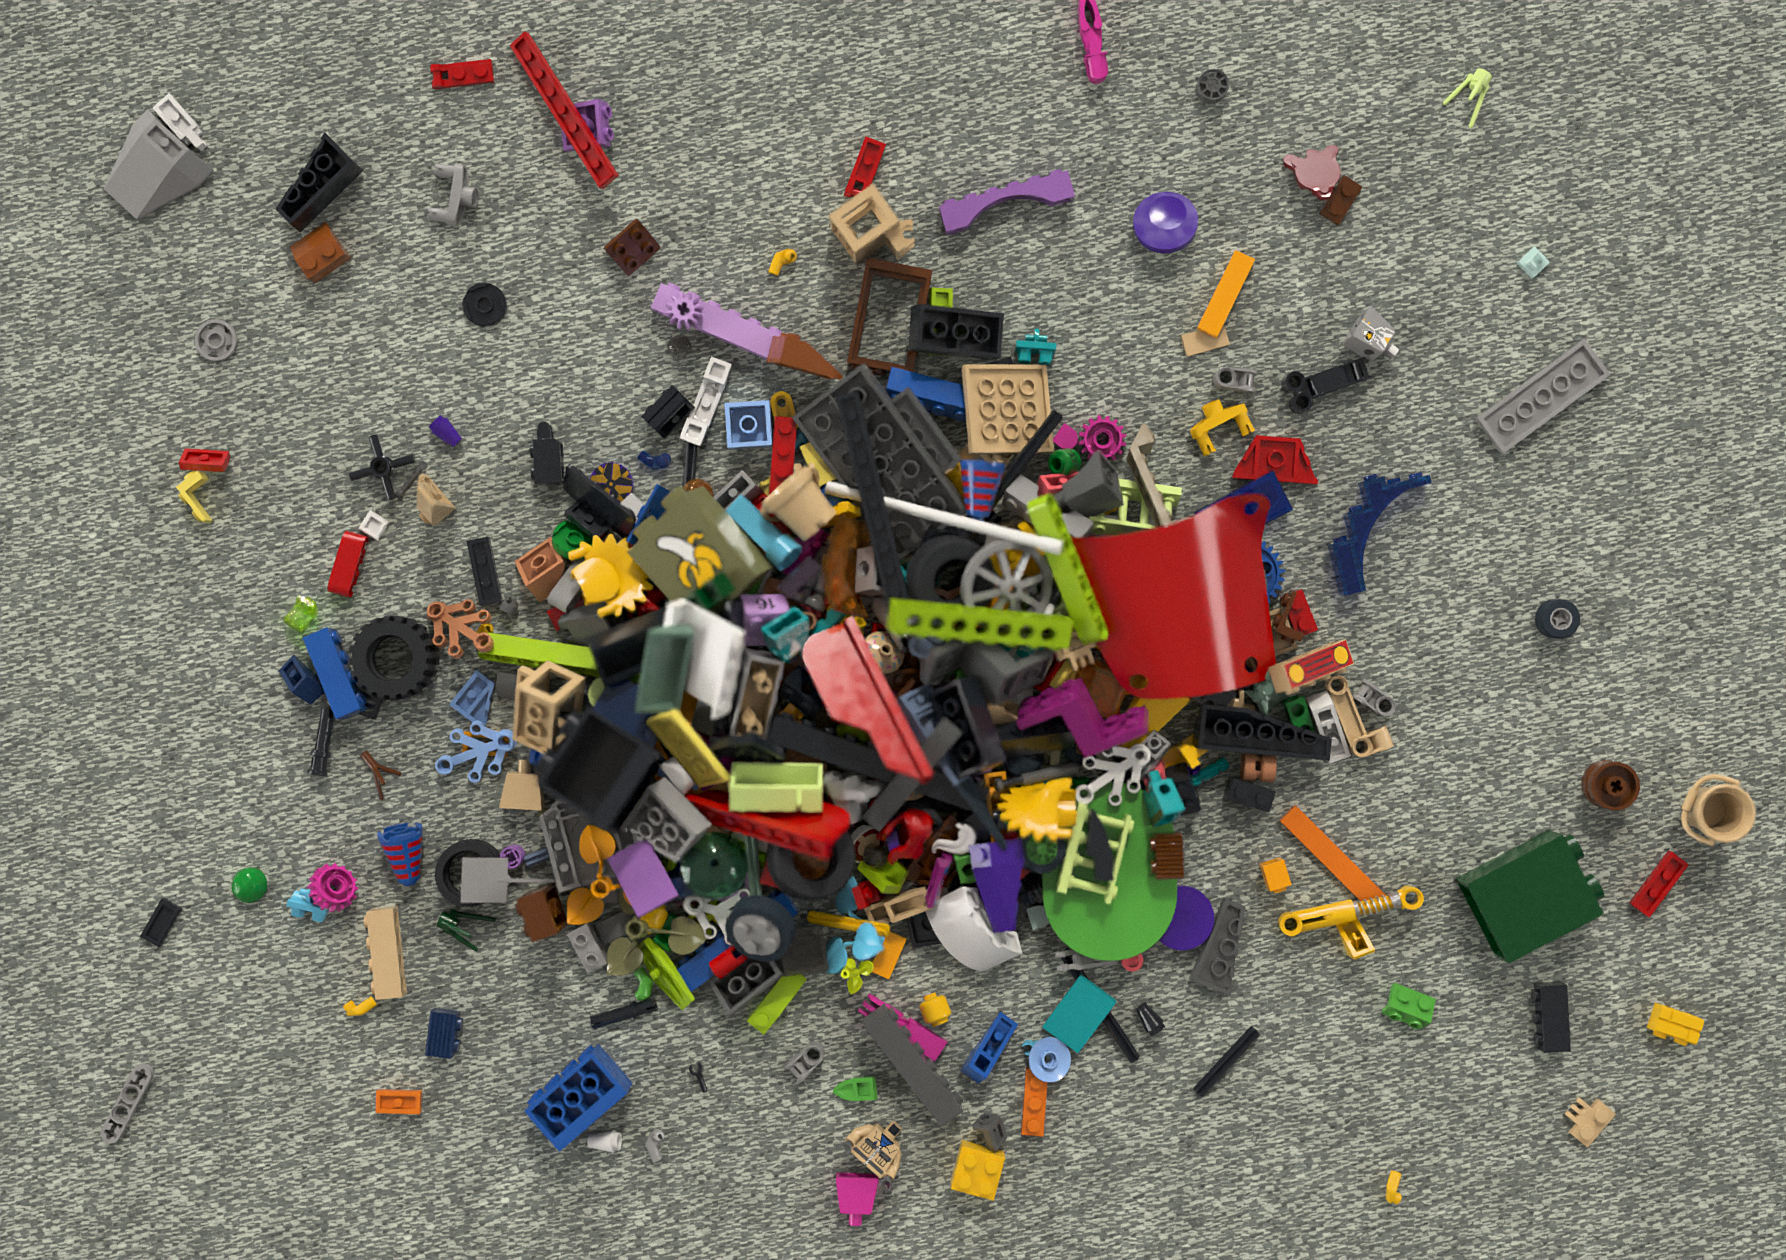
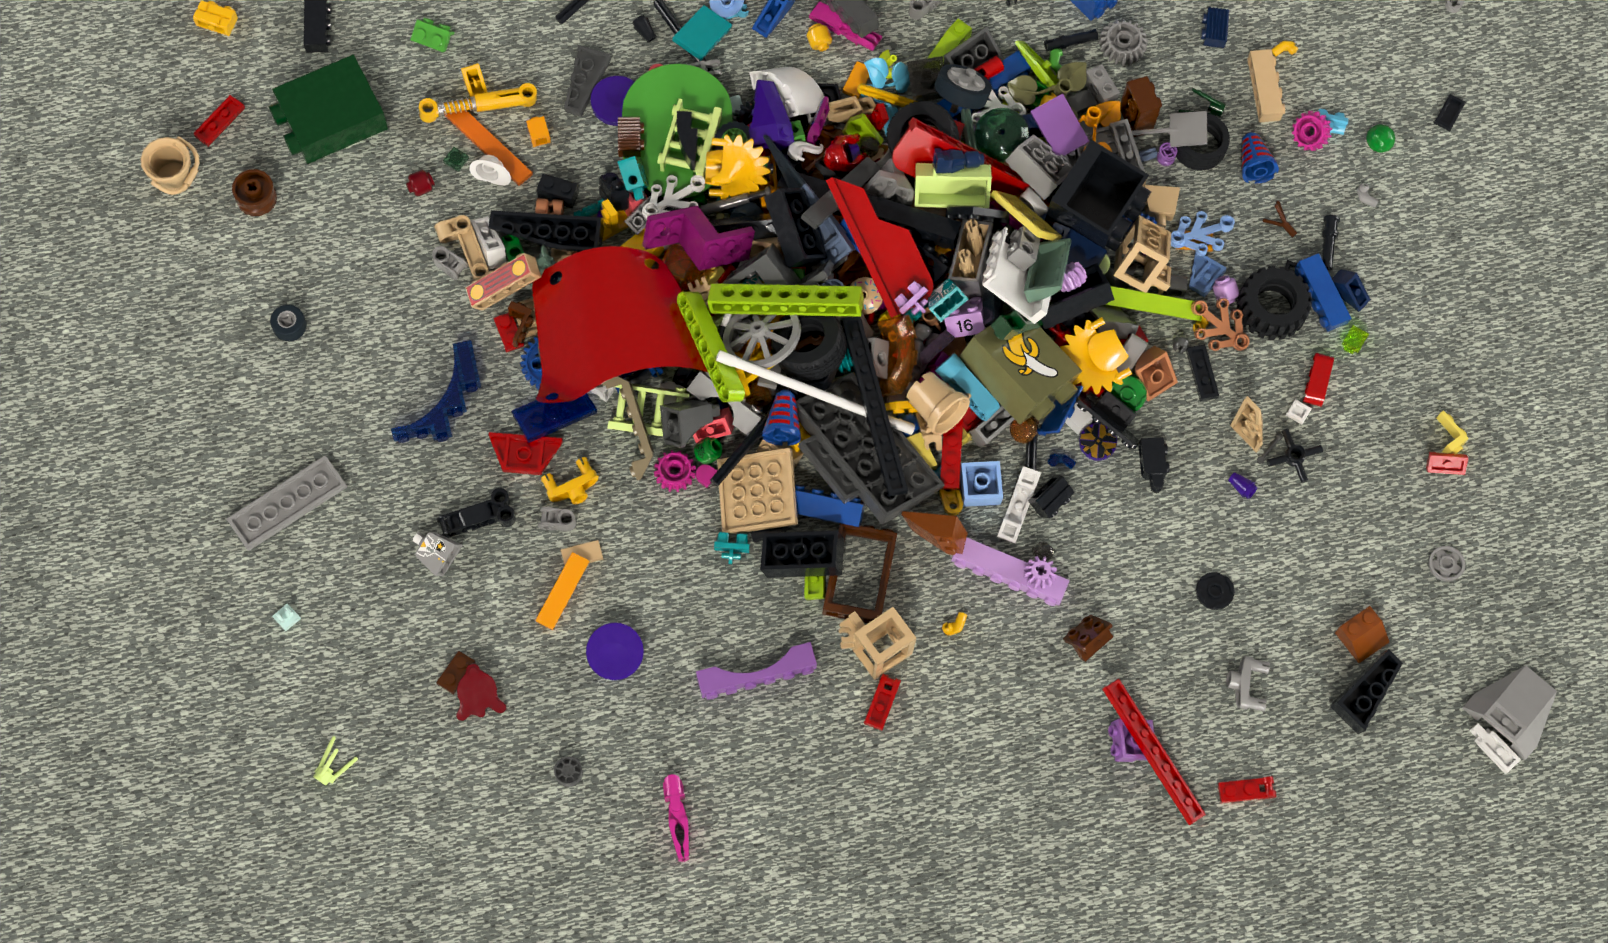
camera: 175 degrees right, 20 degrees down
(275, 806) = (1364, 197): none -> light grey arm
(450, 675) = (1226, 288): none -> lavender head
(569, 1001) = (1127, 32): none -> light grey gear
(632, 662) = (1074, 277): none -> lavender gear
(693, 697) = (1023, 248): none -> light grey brick
(774, 809) = (954, 160): none -> dark blue piece
(820, 640) = (905, 304): none -> lavender hips
(1331, 823) = (490, 169): none -> white piece
(1371, 838) = (456, 159): none -> clear green plate
(1413, 802) = (420, 183): none -> dark red head

